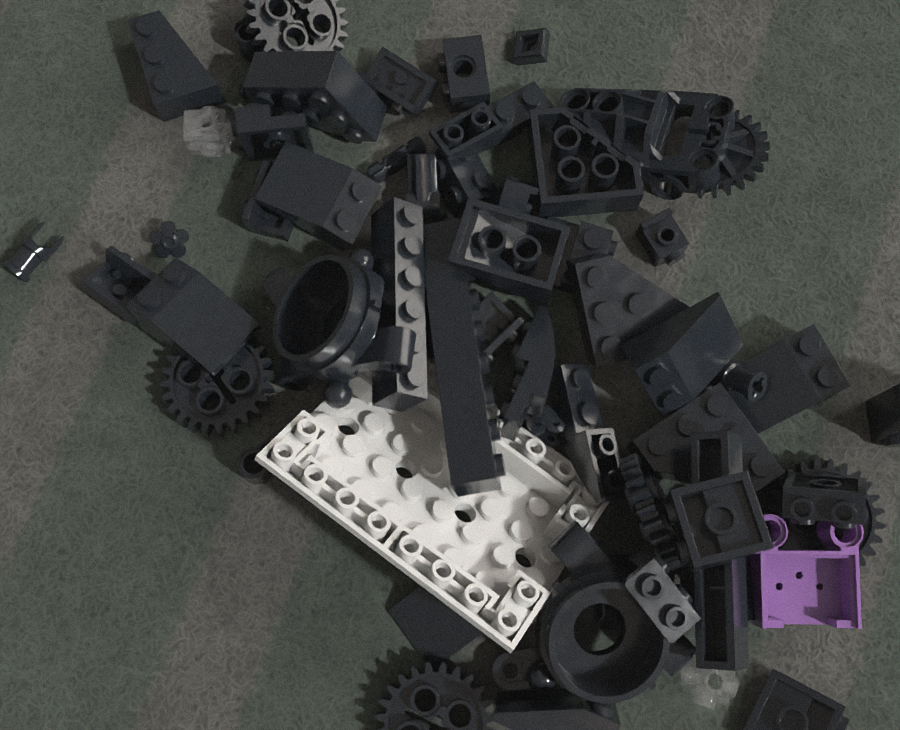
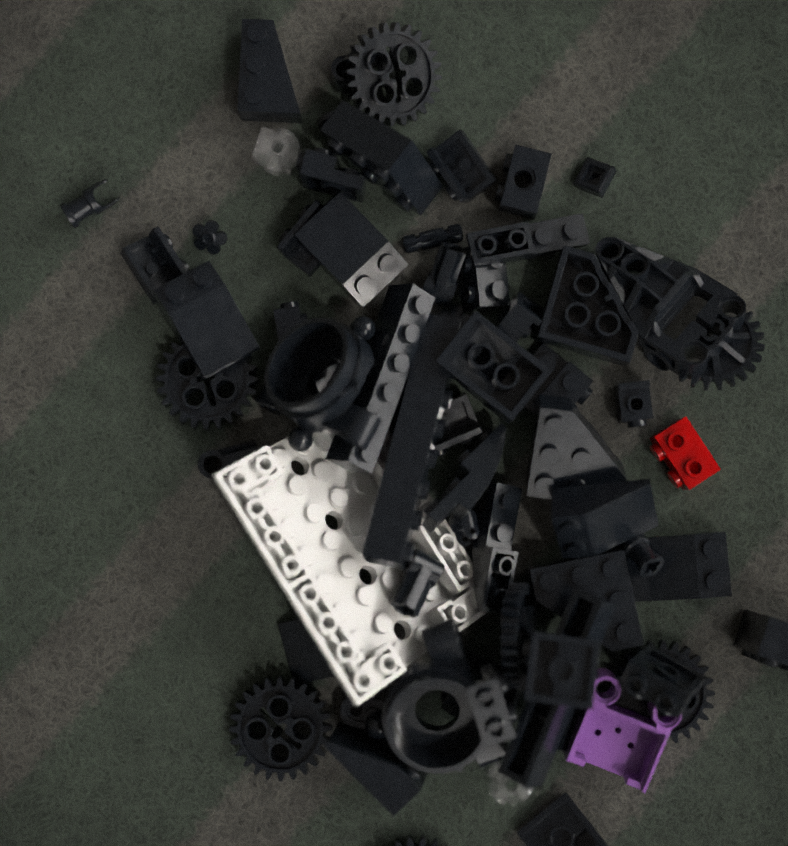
camera: 25 degrees right, 10 degrees up
(521, 494) = (418, 579): none -> black piece
(735, 269) = (683, 454): none -> red brick

